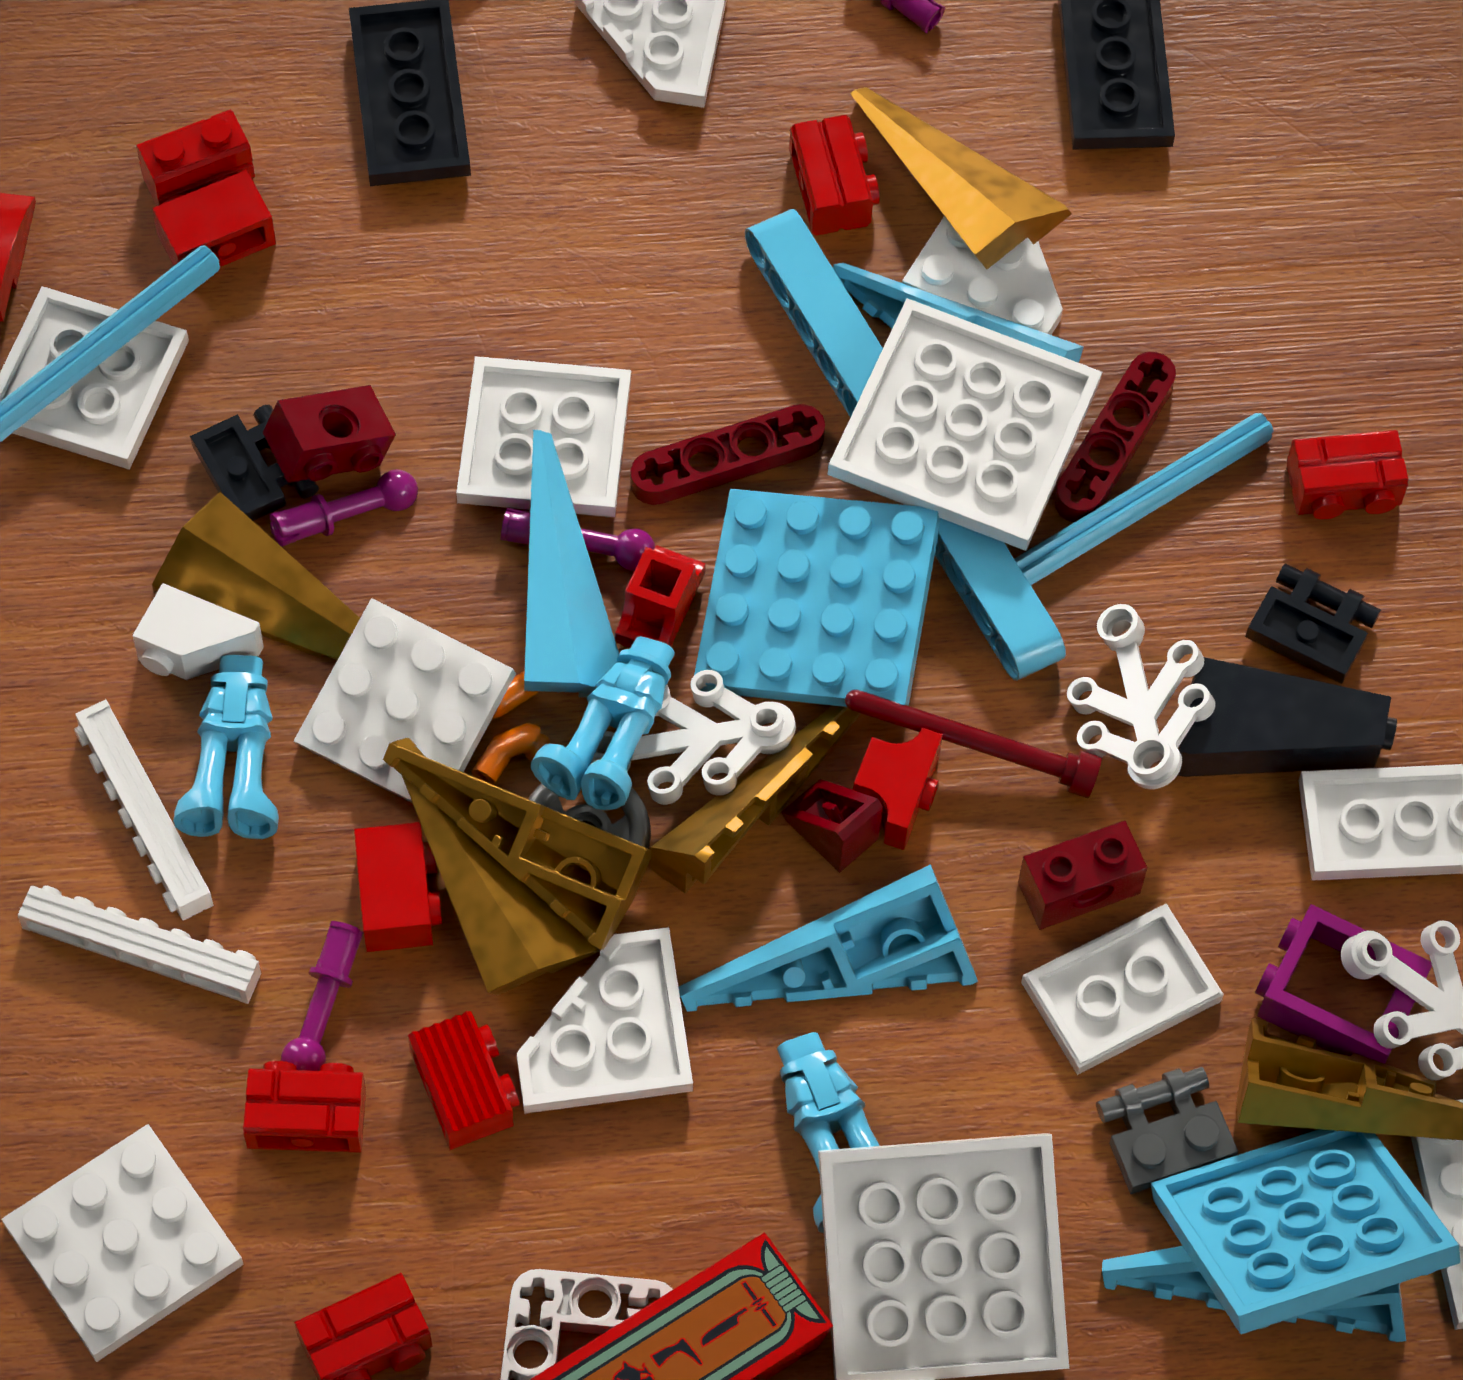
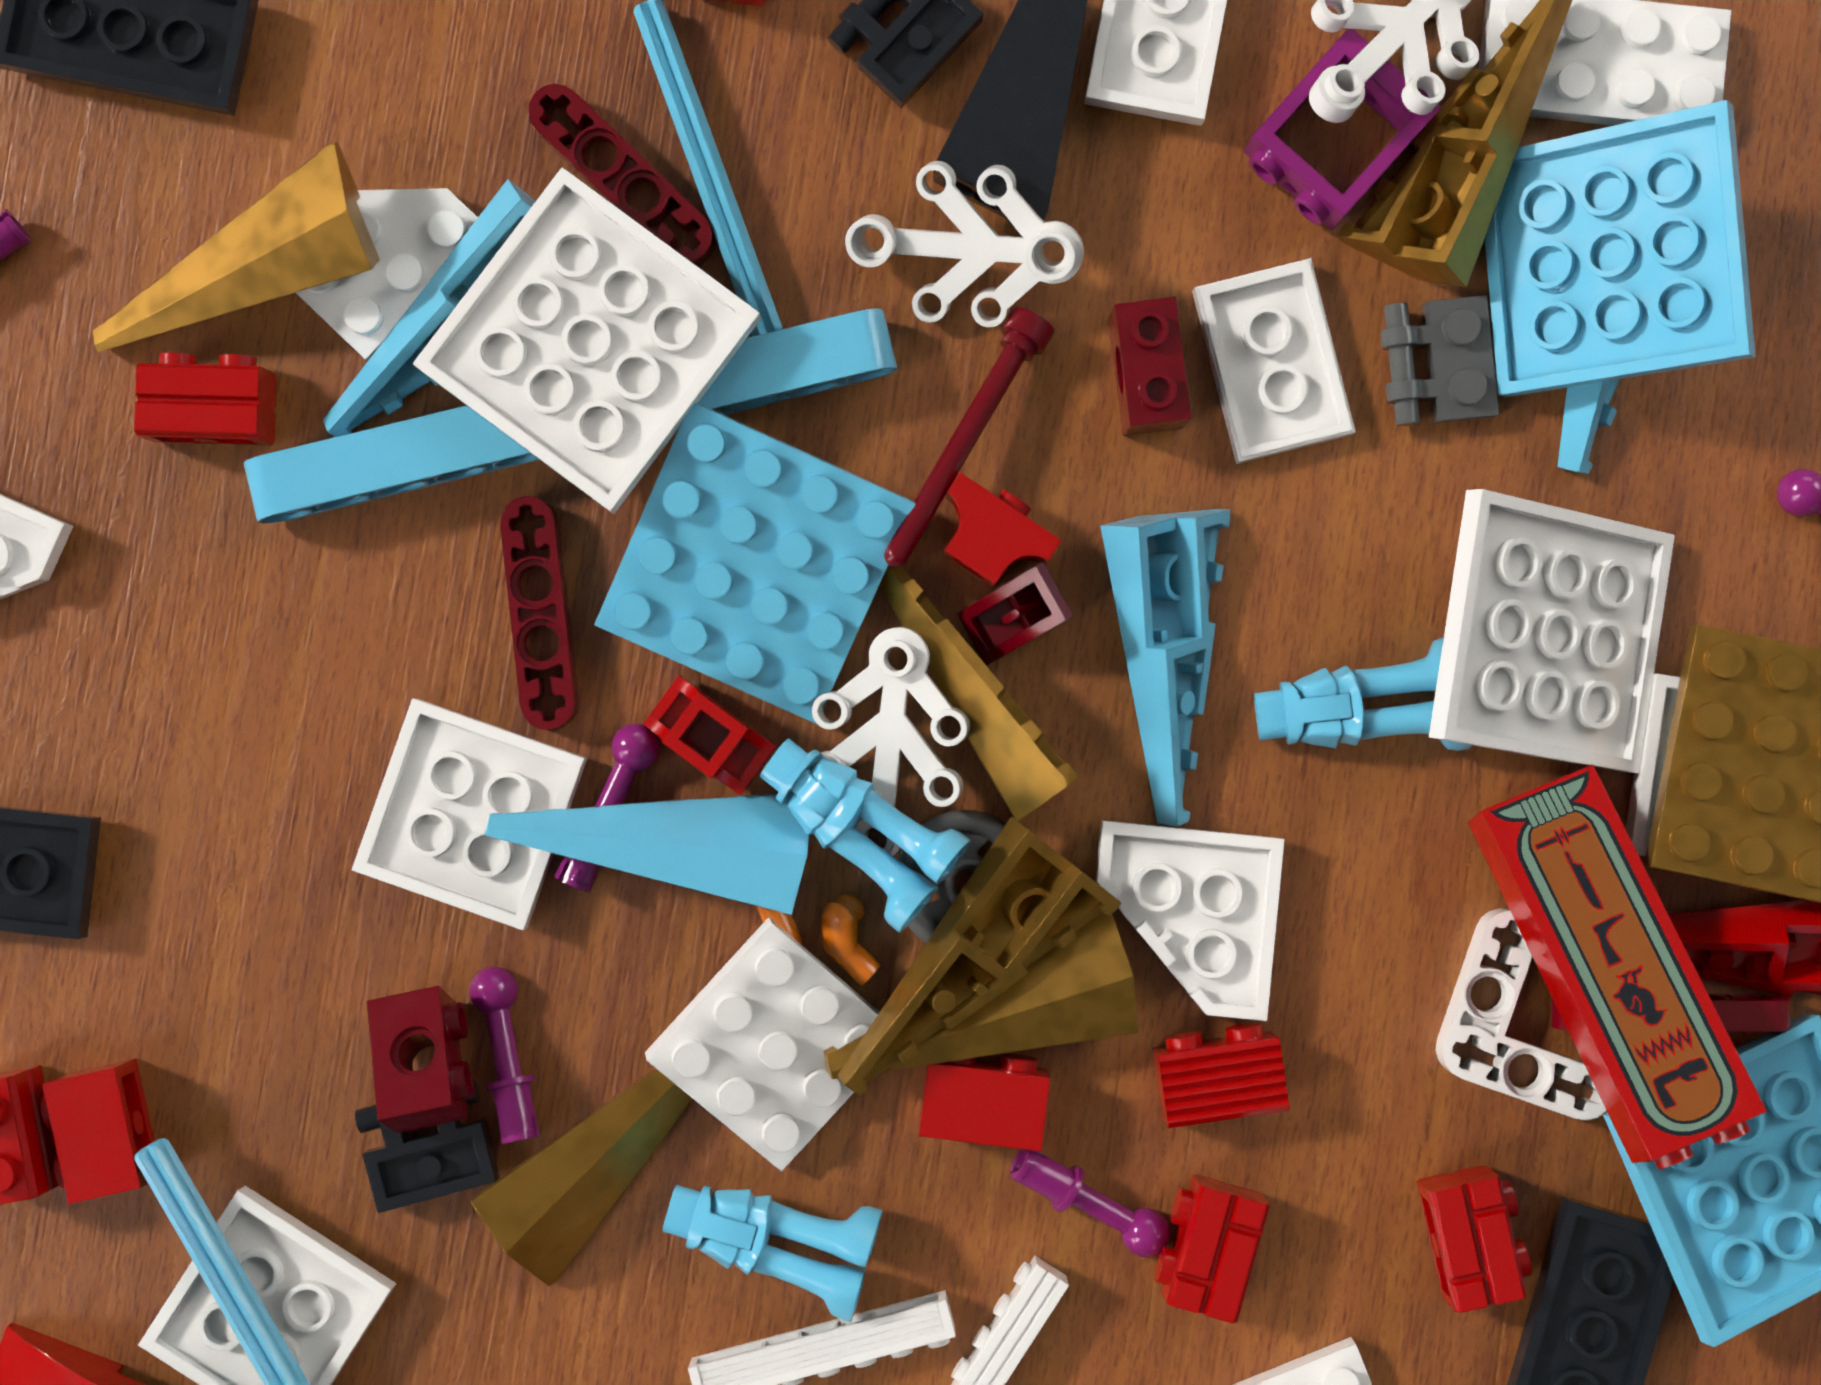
camera: 70 degrees left, 25 degrees up
(191, 635) = (629, 1262): white slope -> none

